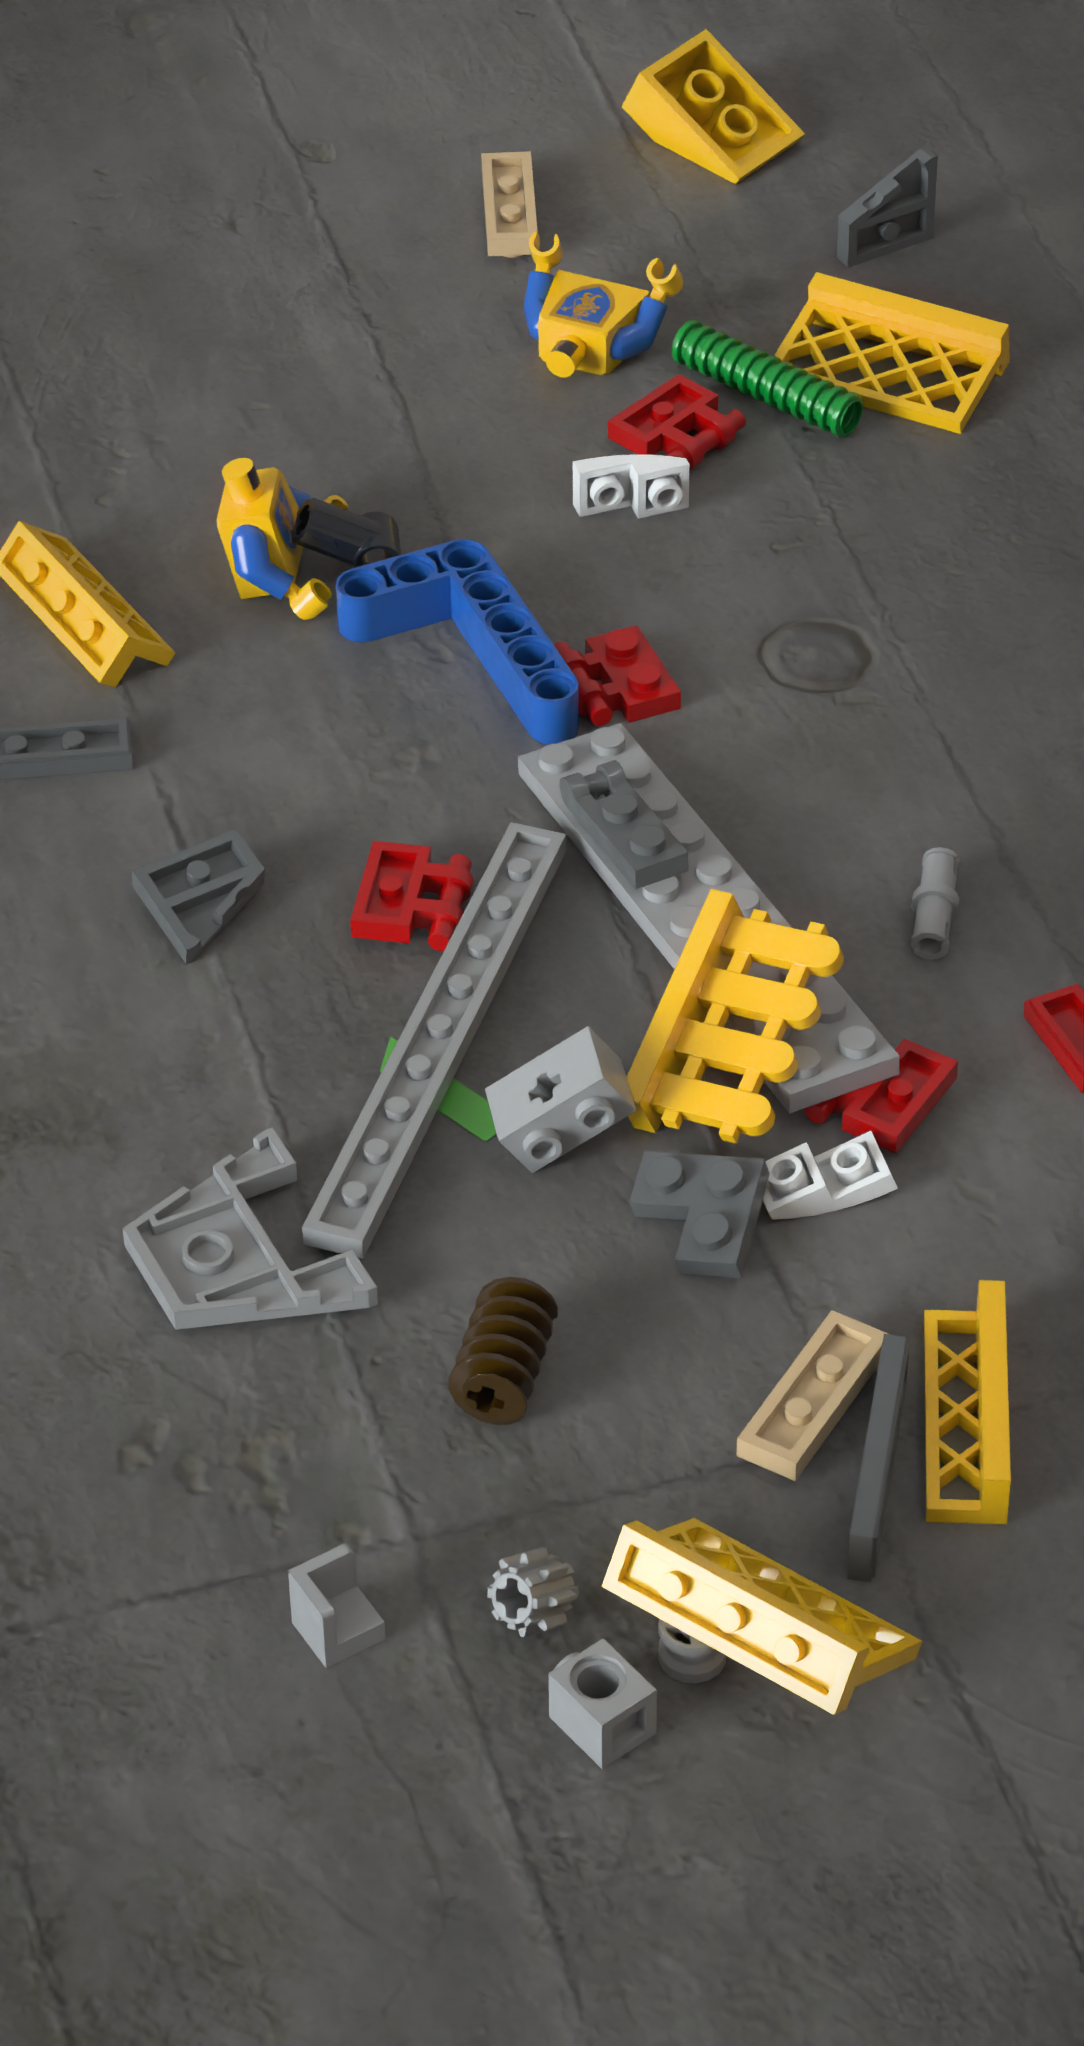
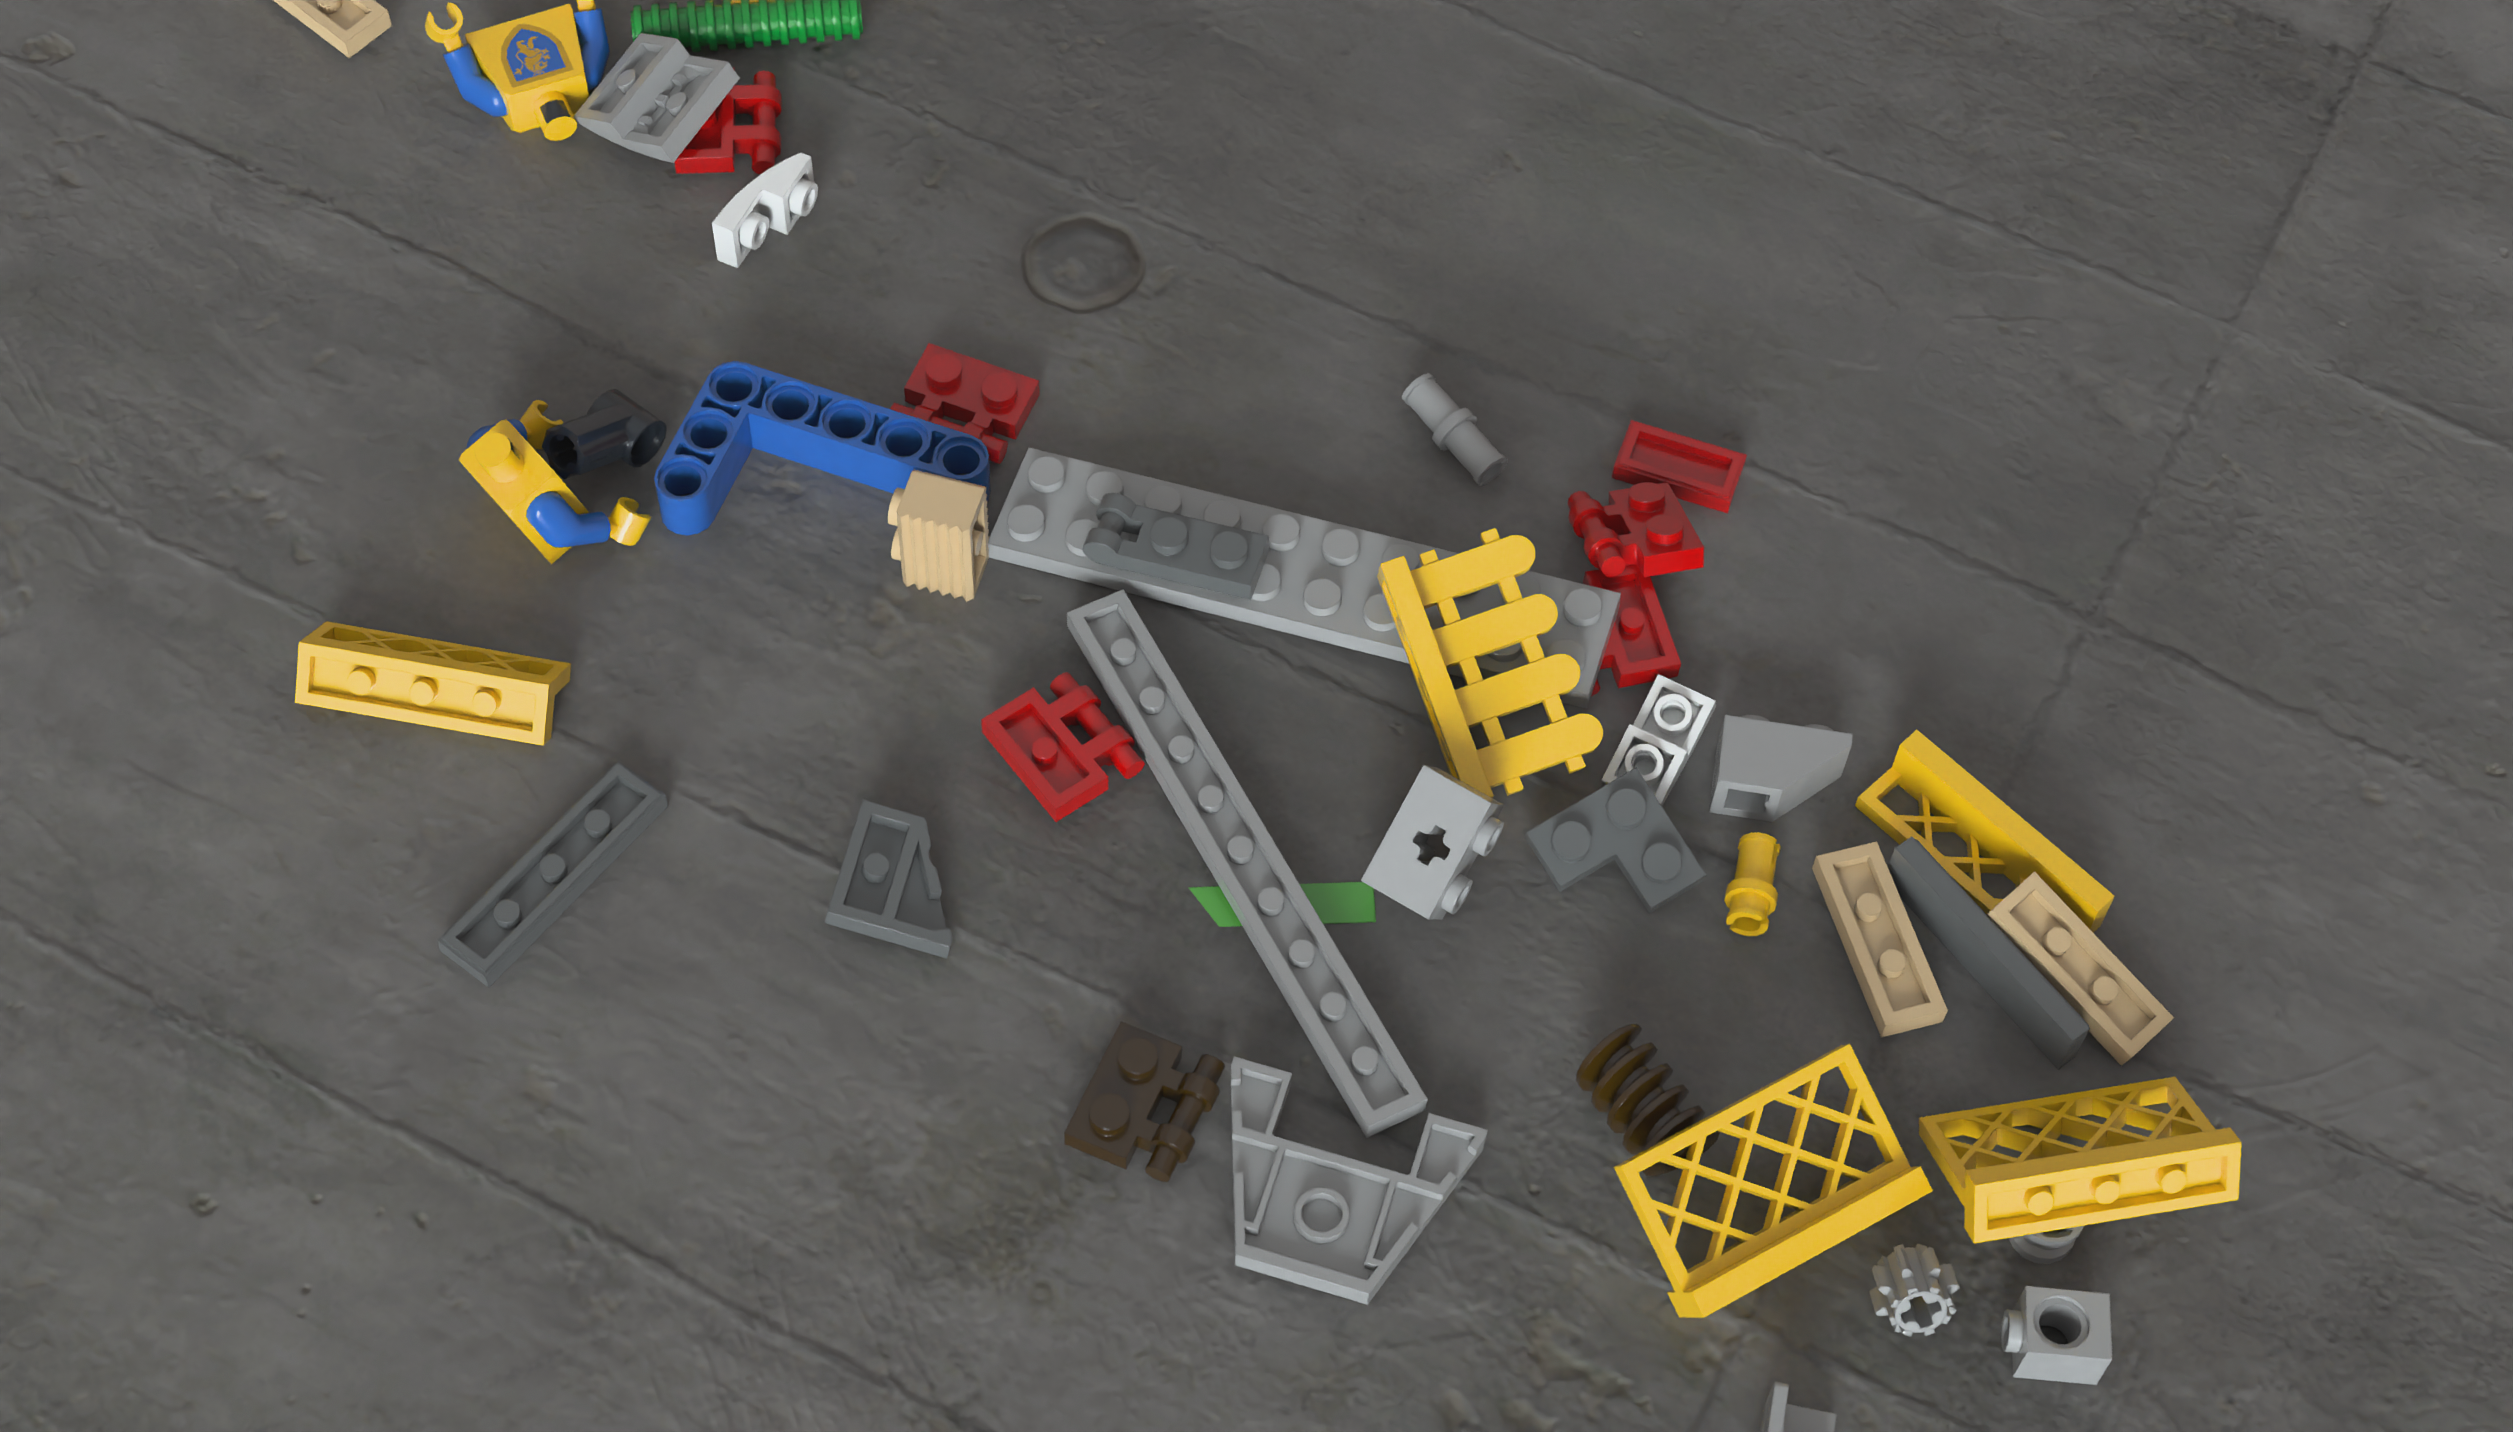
camera: 50 degrees left, 15 degrees up
(190, 1118) = (1125, 1094): none -> dark brown plate
(480, 718) = (940, 533): none -> tan brick
(501, 1503) = (1783, 1241): none -> yellow fence
(639, 378) = (656, 97): none -> light grey slope
(759, 1303) = (1752, 891): none -> yellow pin
(878, 1242) = (1773, 766): none -> light grey slope
(929, 1513) = (2080, 968): none -> tan plate
(977, 1045) = (1651, 530): none -> red plate

